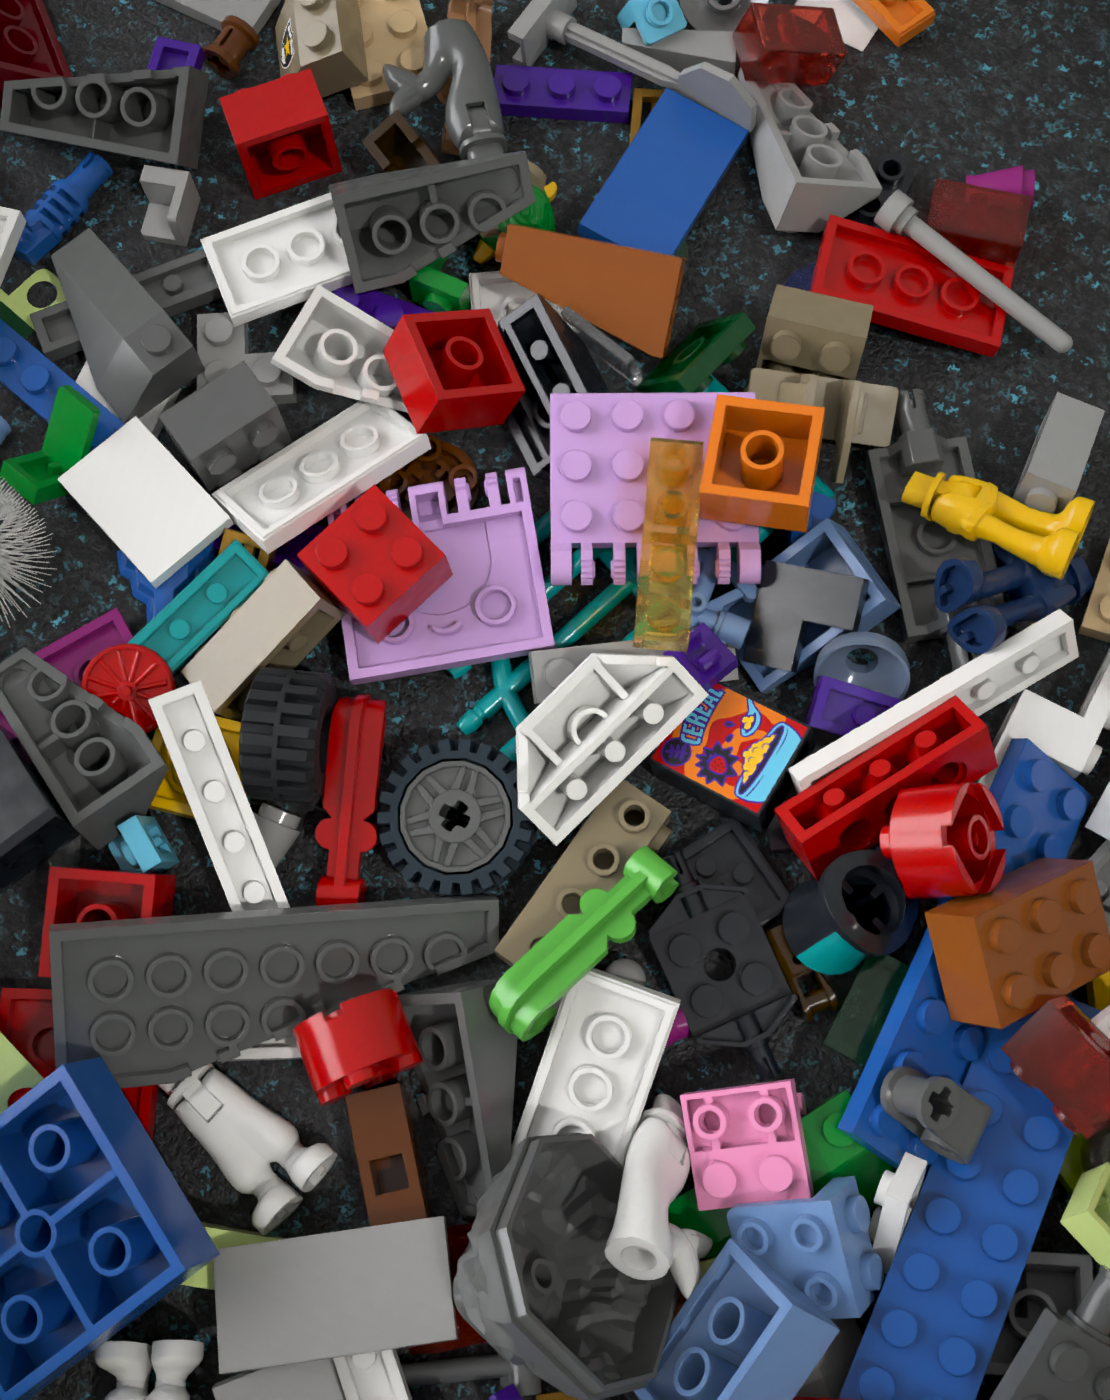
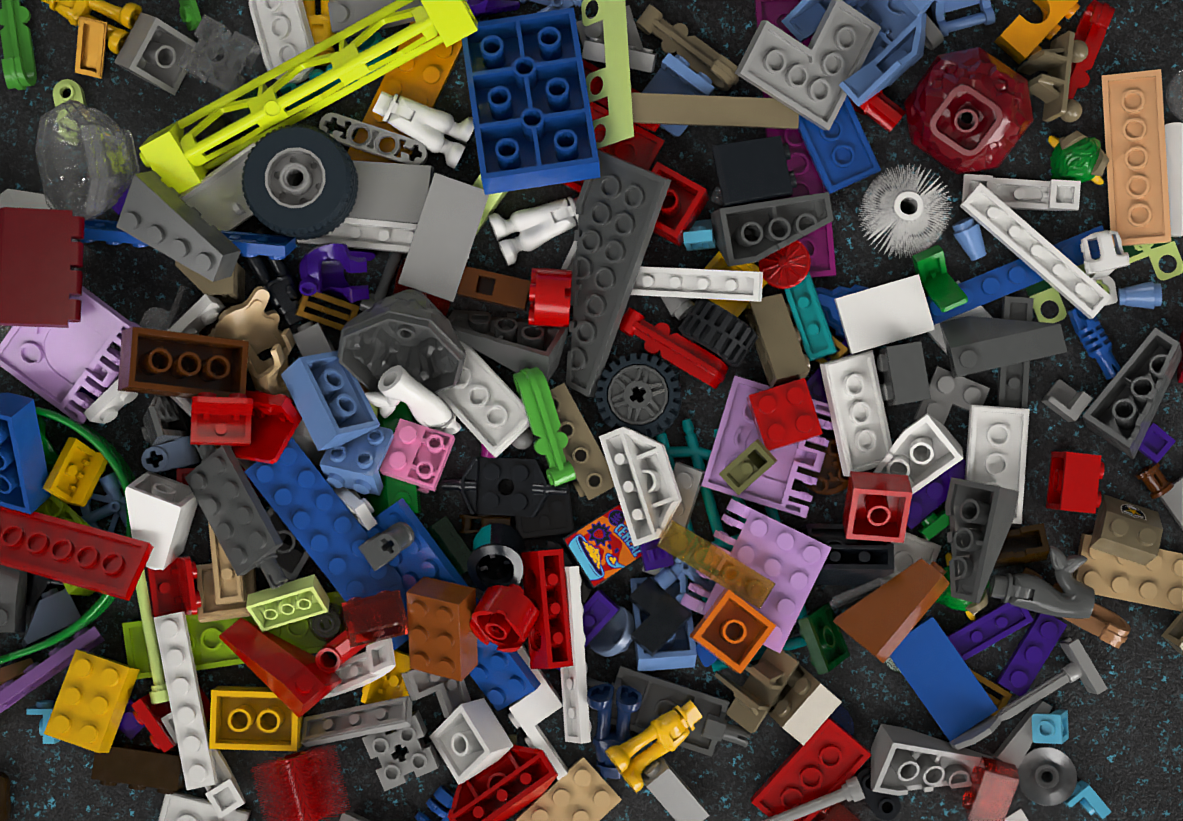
camera: 110 degrees right, 15 degrees up
(484, 576) = (748, 467): none -> olive slope
(562, 159) = (988, 629): none -> dark purple plate

